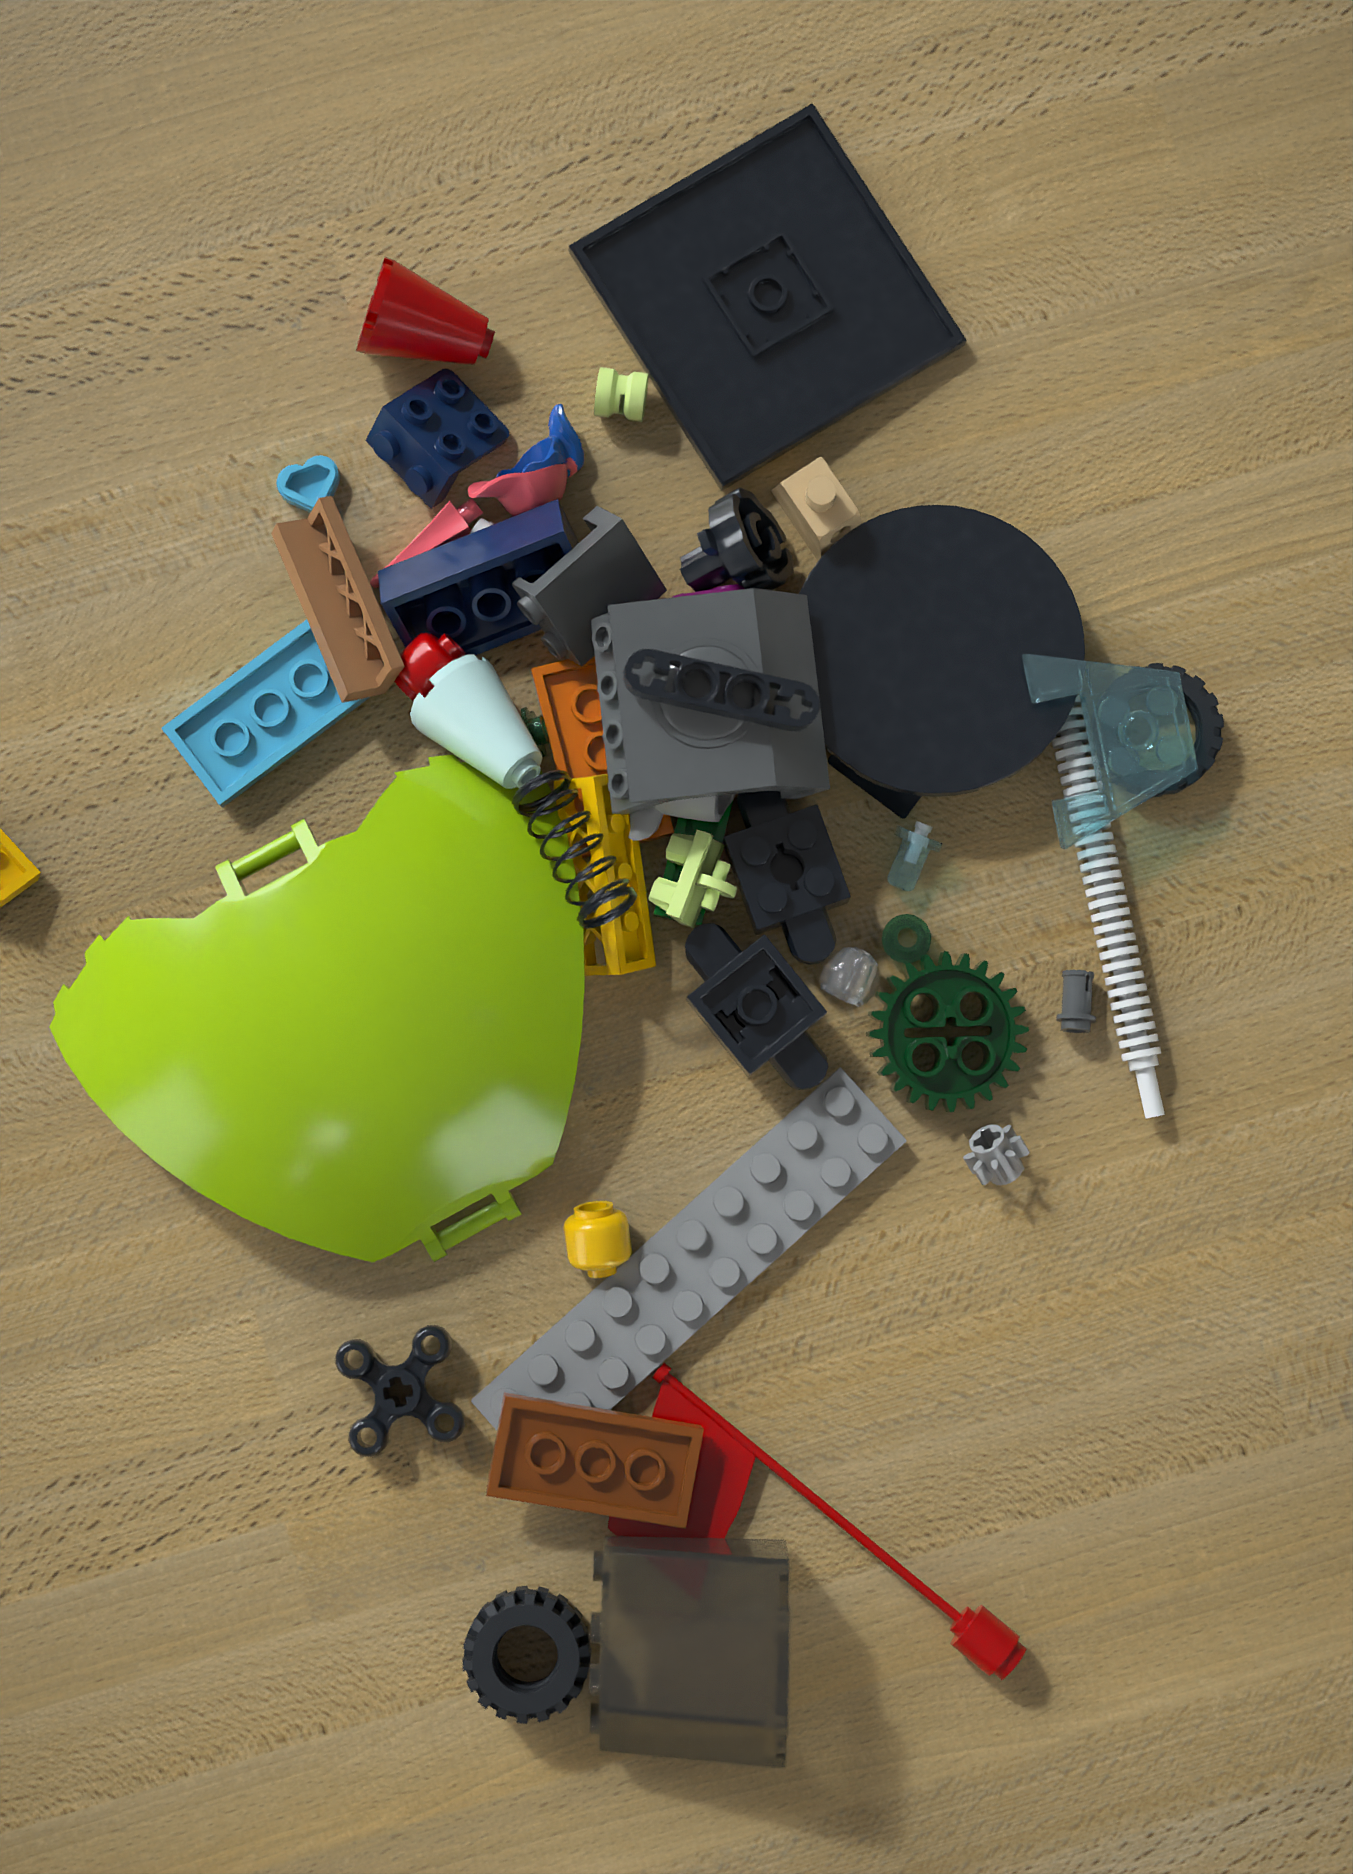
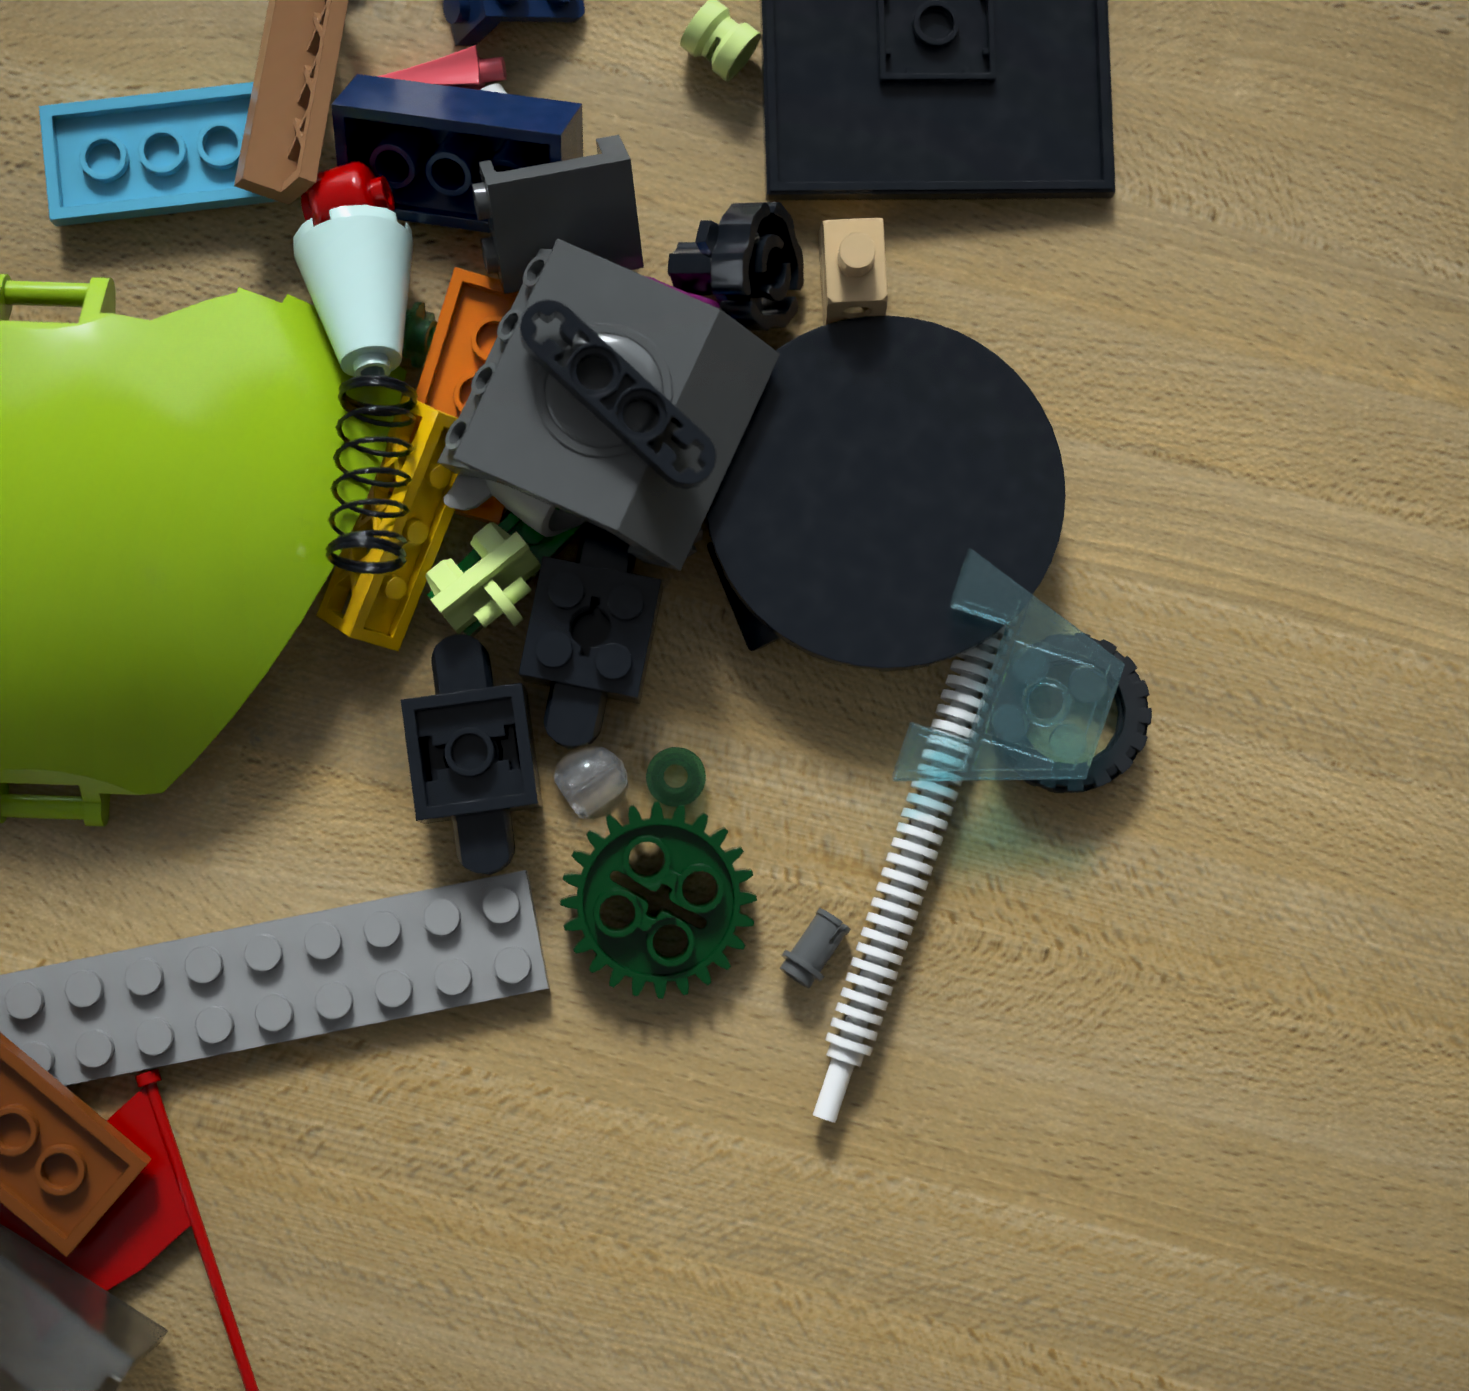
camera: 25 degrees right, 0 degrees up
(540, 472) = (588, 72): hair -> none
(597, 1238) = (163, 898): yellow head -> none
(911, 855) = (734, 693): clear light blue piece -> none
(996, 1154) = (631, 1059): light grey gear -> none

